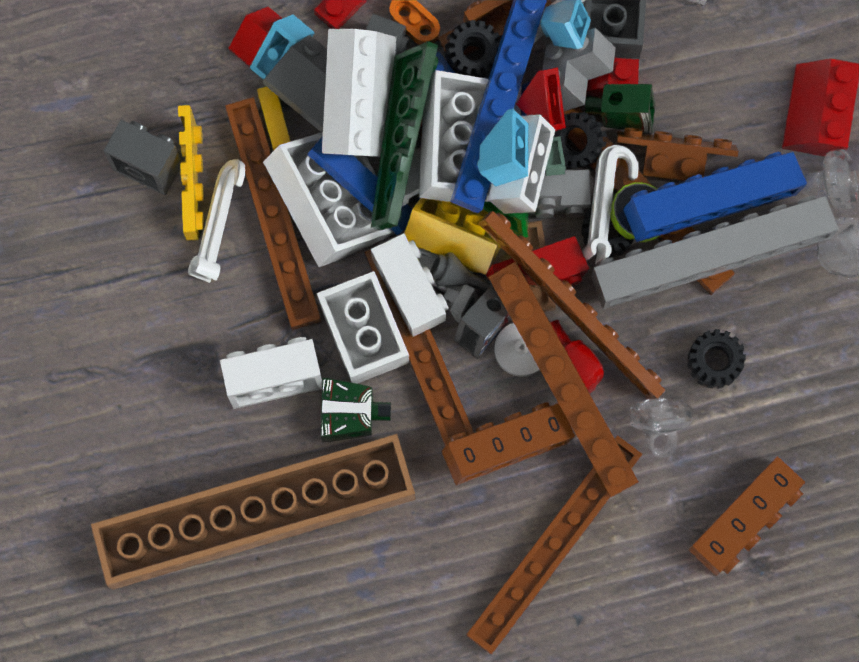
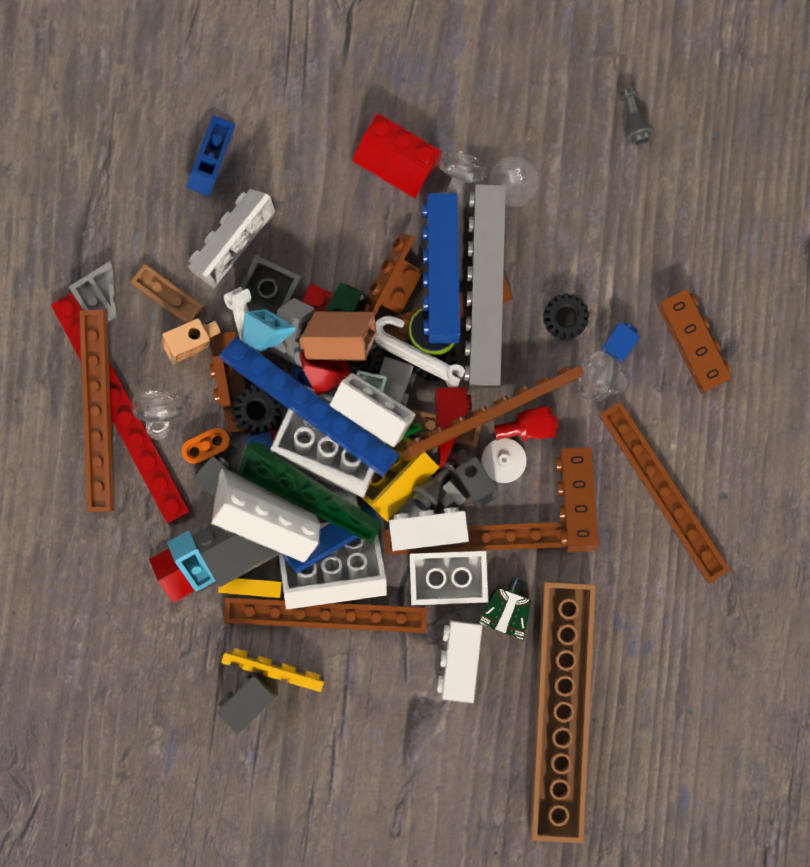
camera: 75 degrees left, 10 degrees up
(205, 265) = (350, 682): white piece -> none
(505, 150) = (363, 419): medium azure slope -> none
(563, 379) = (546, 440): dark orange plate -> none
(591, 100) = (339, 335): none -> nougat brick
(712, 431) = (621, 341): none -> blue brick

